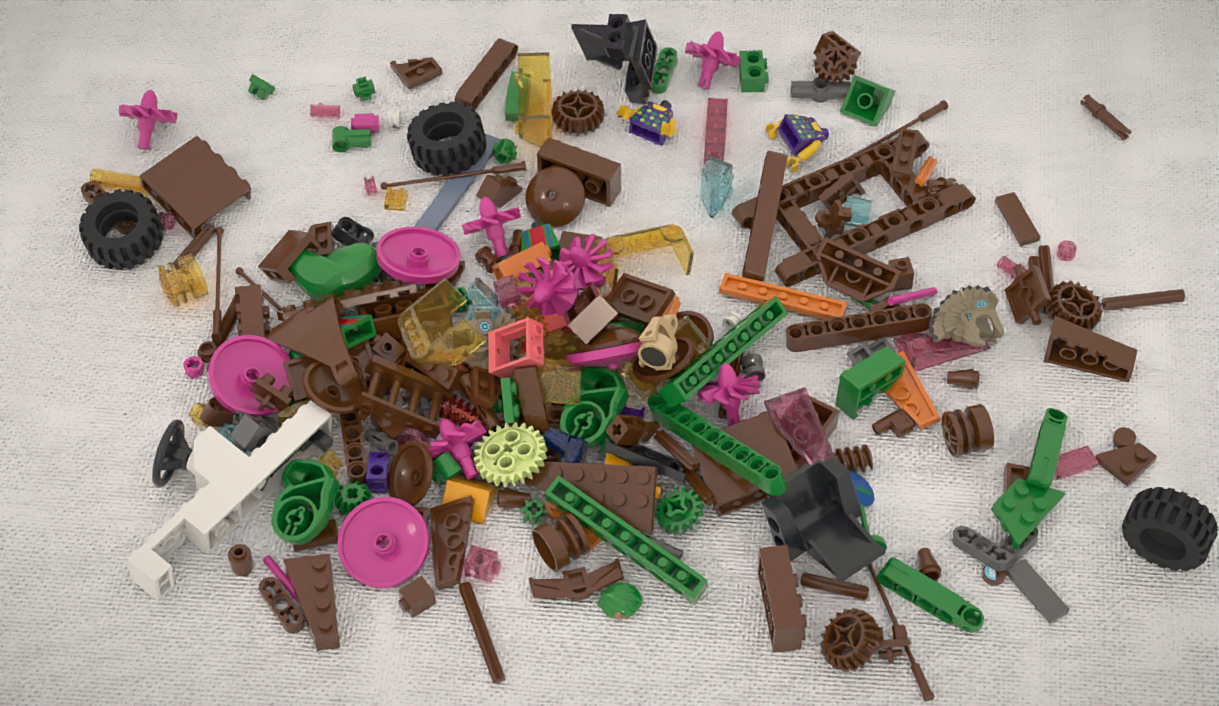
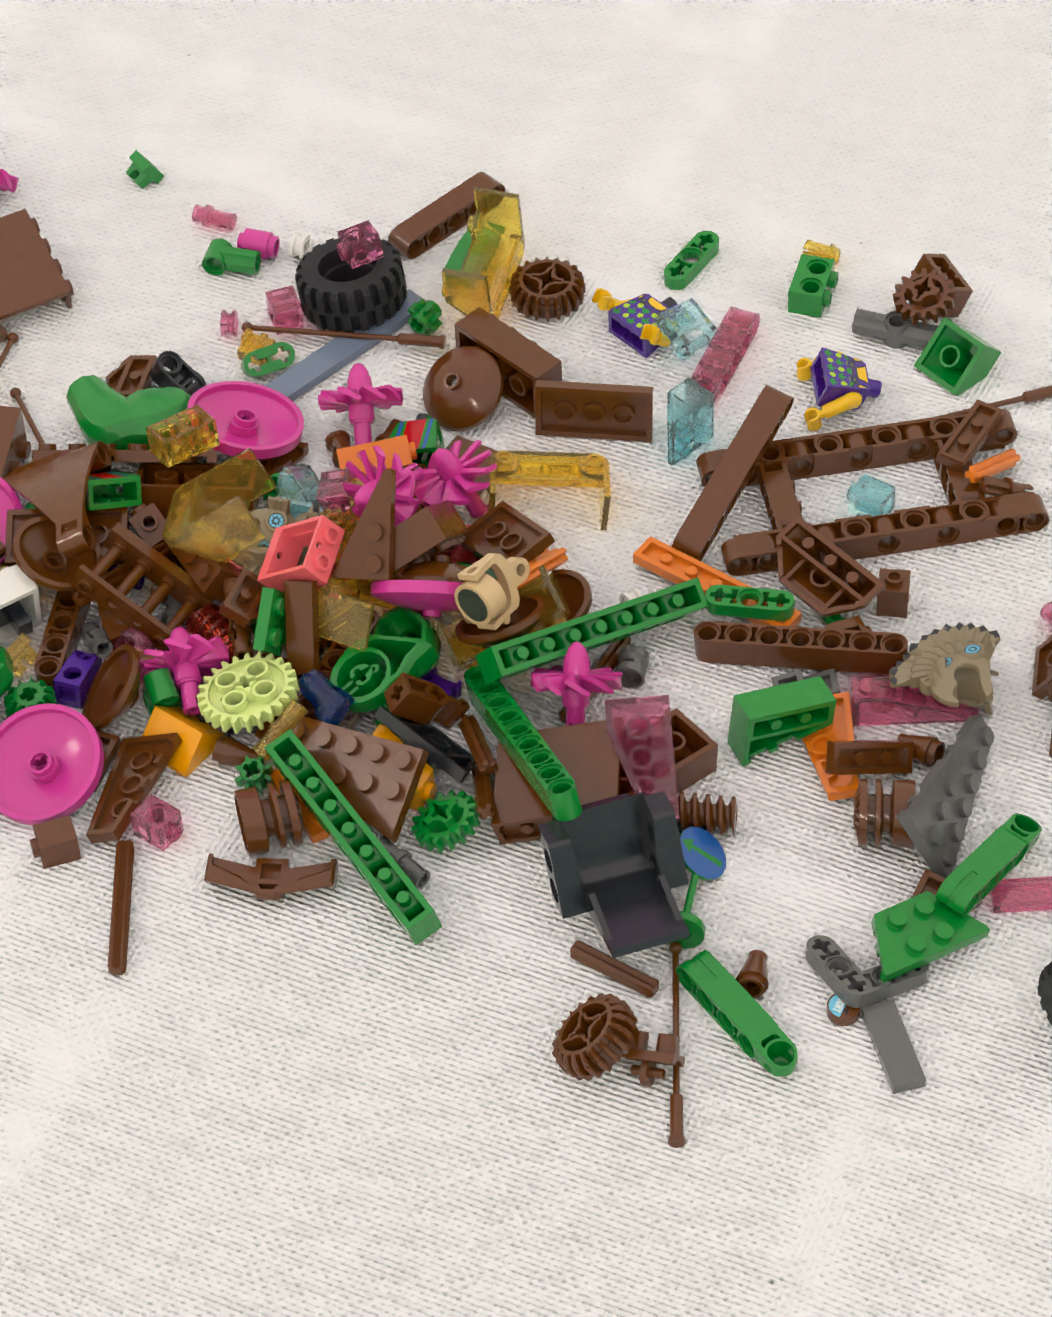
camera: 20 degrees right, 5 degrees down
(284, 253) = (58, 389): reddish brown panel -> none
(363, 88) = (275, 199): green gear -> none
(390, 279) = (182, 436): none -> clear yellow brick
(405, 166) = (284, 308): none -> clear pink brick
(406, 202) = (270, 366): none -> green beam
(416, 71) = (357, 193): reddish brown wing -> none
(449, 111) = (359, 244): none -> clear pink brick
(499, 189) = (394, 364): reddish brown slope -> none
(544, 475) = (287, 720): none -> clear yellow pin
(567, 329) = (371, 545): none -> reddish brown wing
(620, 600) = (317, 913): green hair -> none
(622, 42) = (637, 214): black piece -> none
(651, 192) = (594, 410): none -> reddish brown plate
(681, 117) = (683, 320): none -> clear light blue plate
(711, 56) = (758, 252): dark pink piece -> none
(746, 45) = (822, 250): none -> clear yellow pin
(781, 599) = (525, 963): reddish brown brick -> none
(827, 297) = (759, 611): none -> green beam
(833, 219) = (825, 499): reddish brown hips -> none
(844, 187) = (866, 459): reddish brown wing -> none
(896, 421) = (799, 781): reddish brown piece -> none
(912, 296) = (899, 624): dark pink bar -> none
(939, 394) = (869, 757): none -> reddish brown plate
(1004, 430) = (946, 797): none -> dark grey wing

